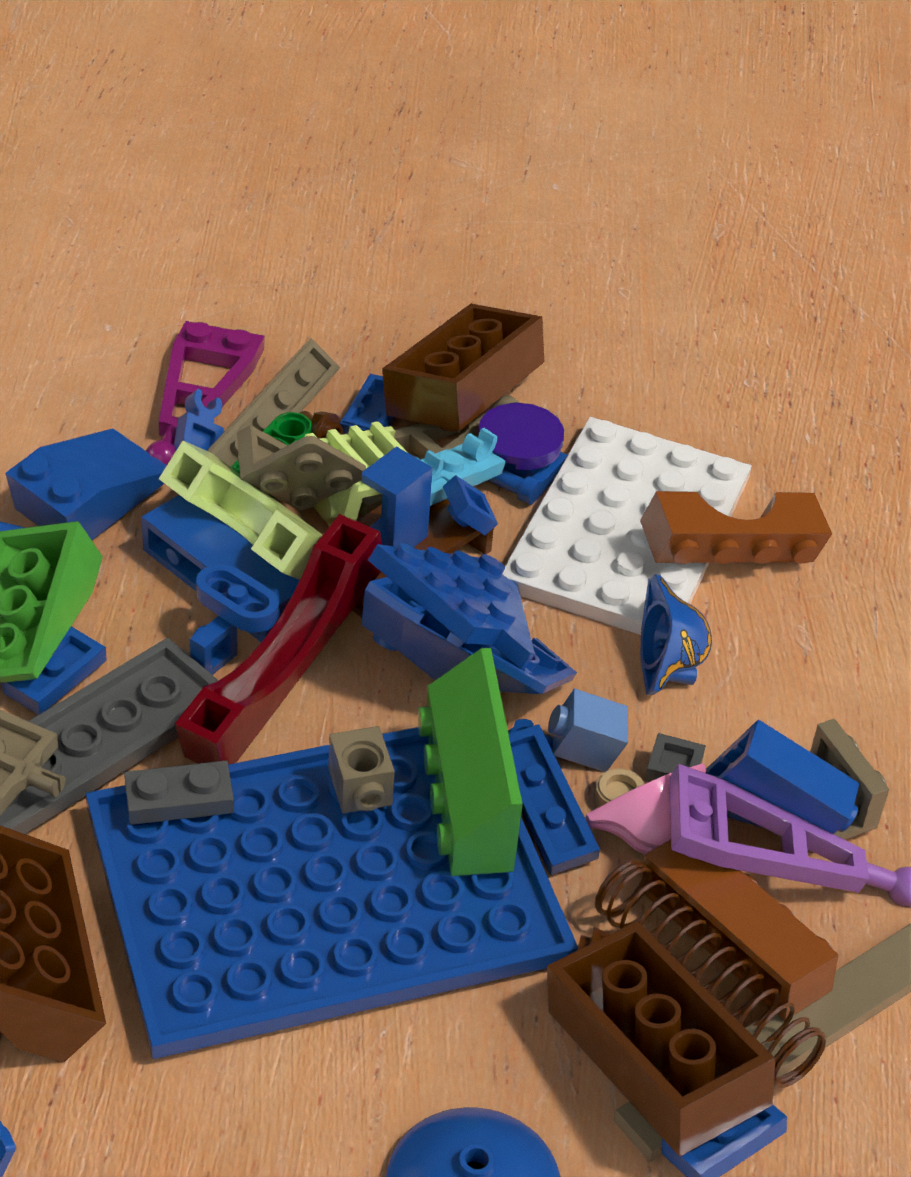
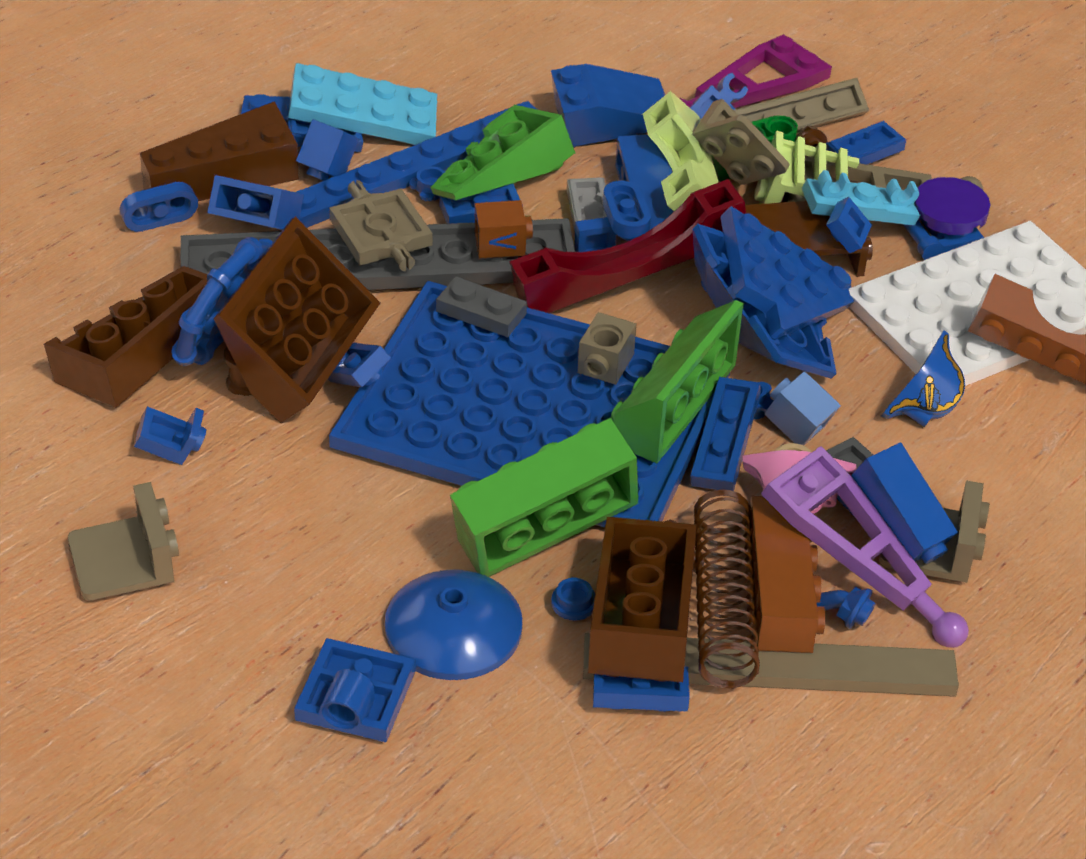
camera: 40 degrees right, 0 degrees up
(123, 689) = (501, 229): none -> dark orange brick
(123, 939) = (360, 365): none -> blue plate
(166, 609) = (586, 198): none -> light grey plate
(405, 497) = (786, 192): blue panel -> none
(463, 367) = (951, 140): reddish brown brick -> none
(470, 983) = (545, 497): none -> bright green brick
(569, 1078) = (573, 599): none -> blue plate
(823, 914) = (853, 606): none -> blue plate

